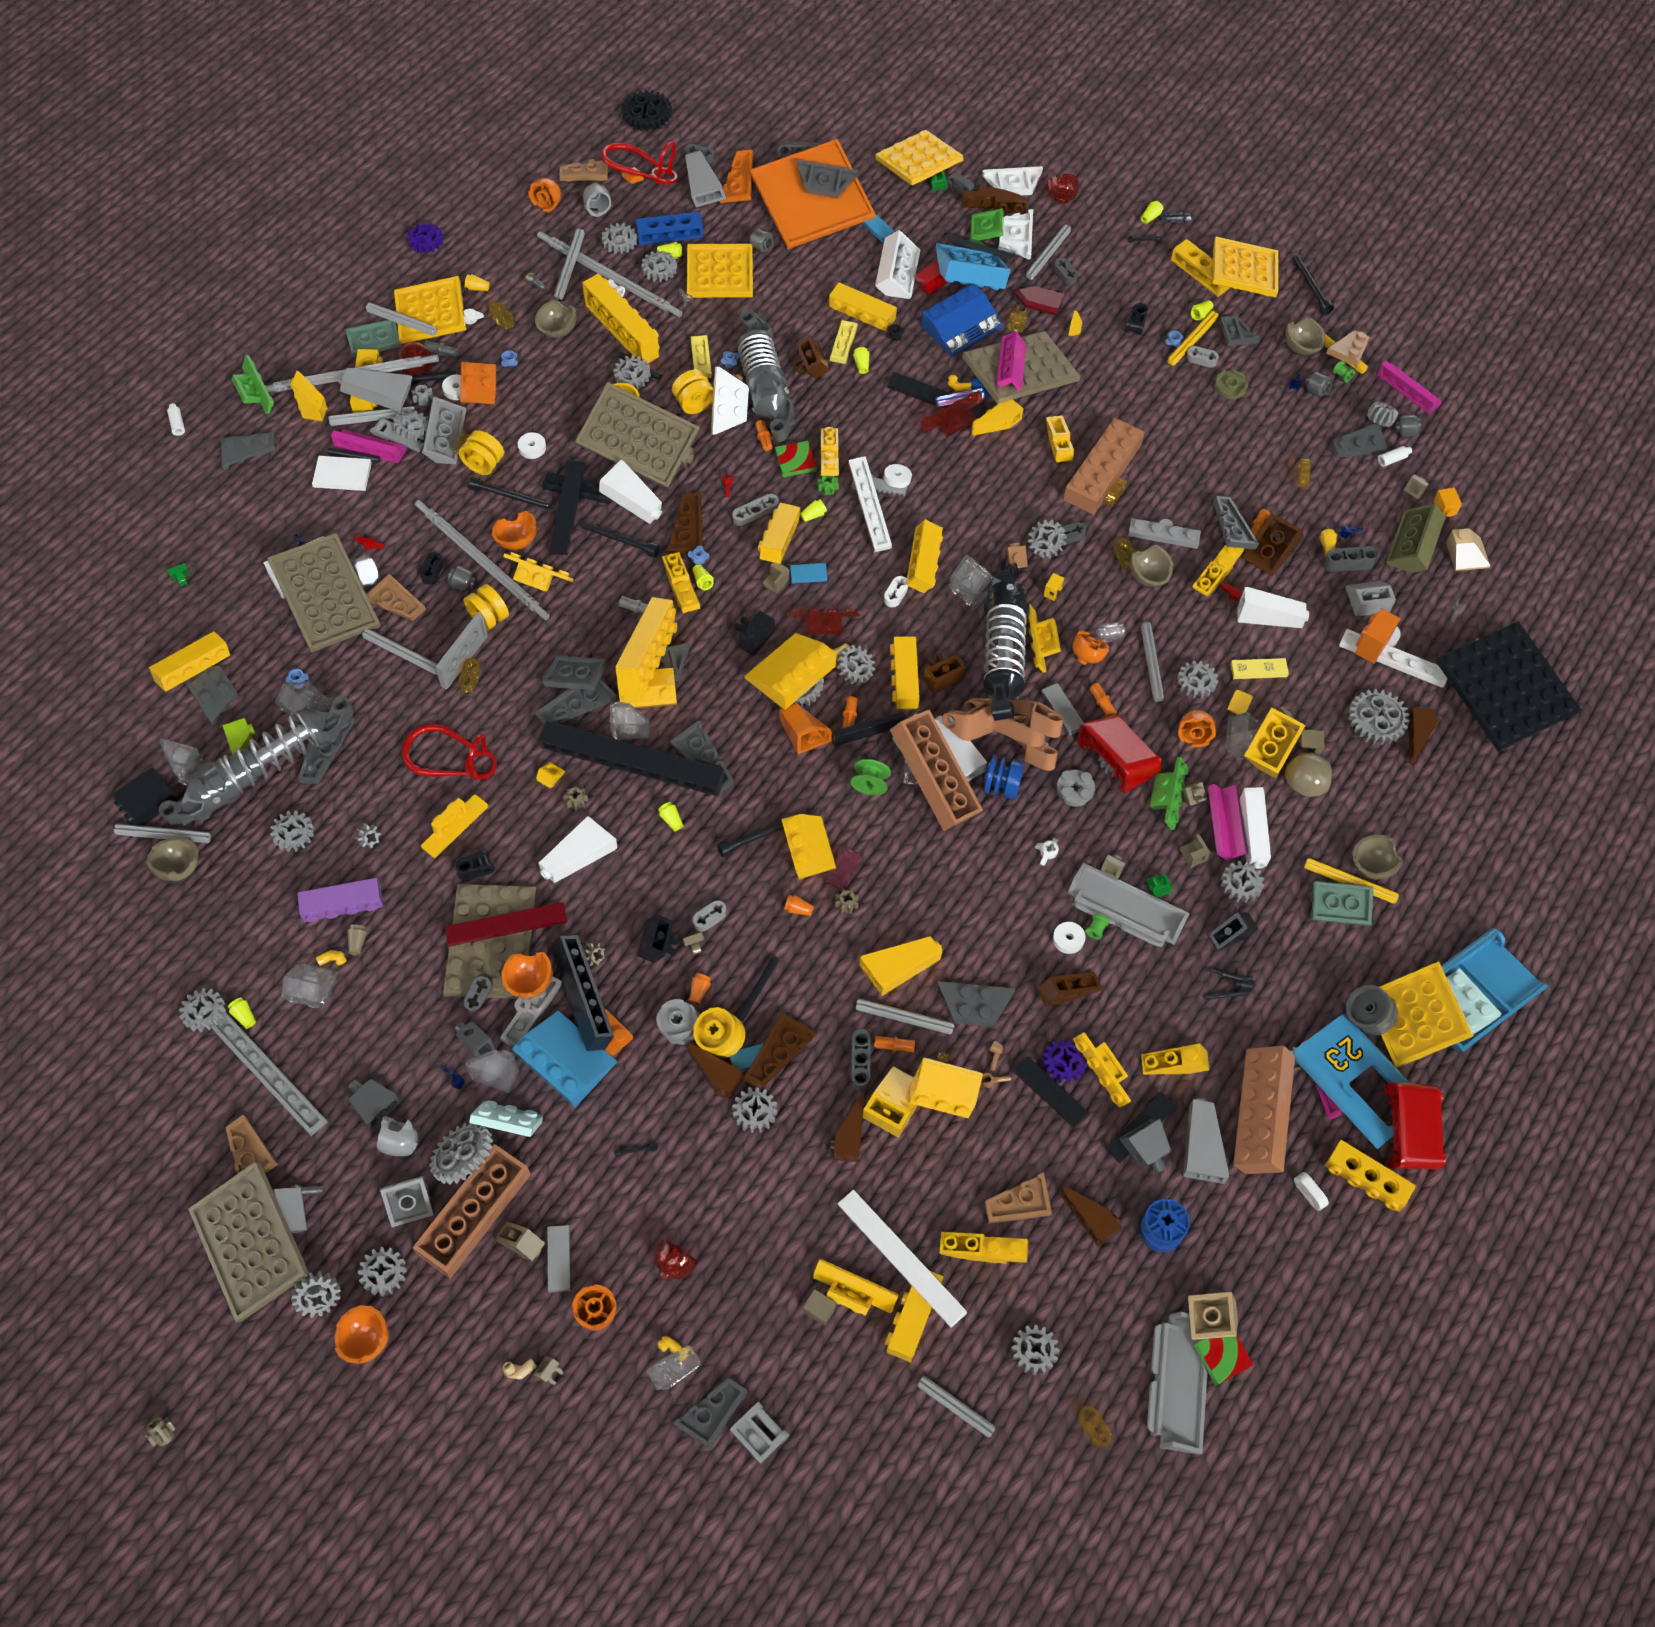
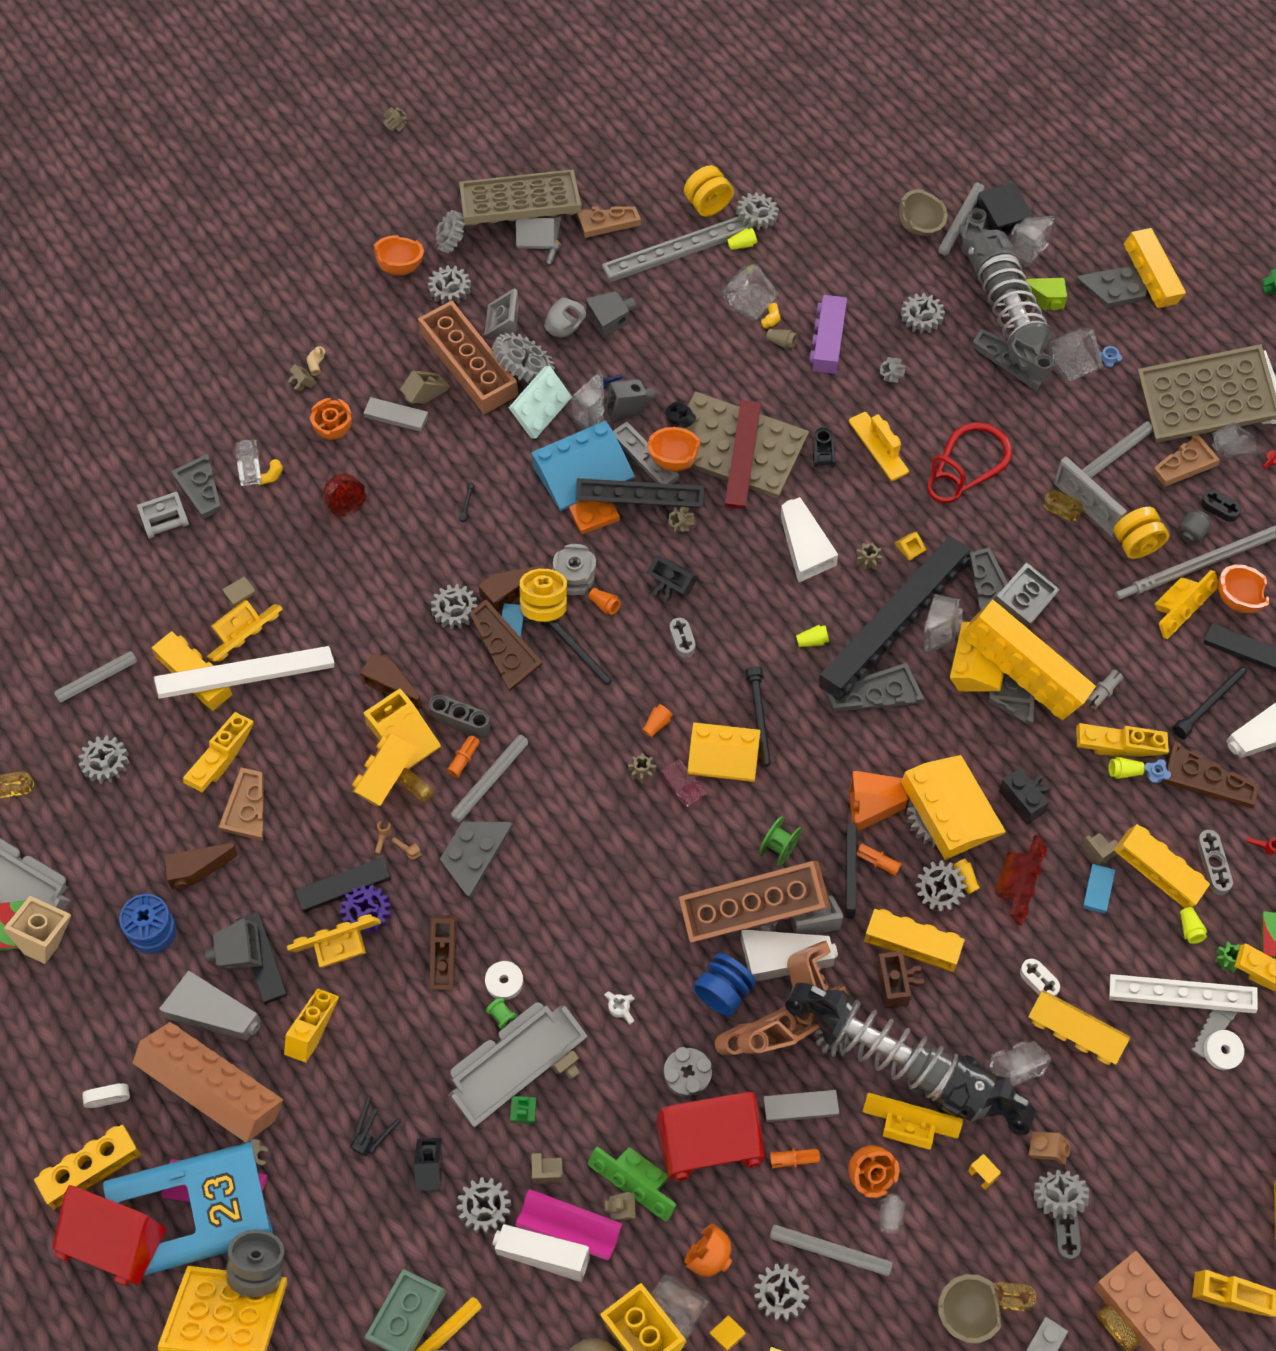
camera: 115 degrees right, 0 degrees up
(195, 1054) = (708, 191): none -> yellow wheel
(693, 942) = (656, 611): dark tan tile -> none
(900, 963) = (547, 789): yellow slope -> none

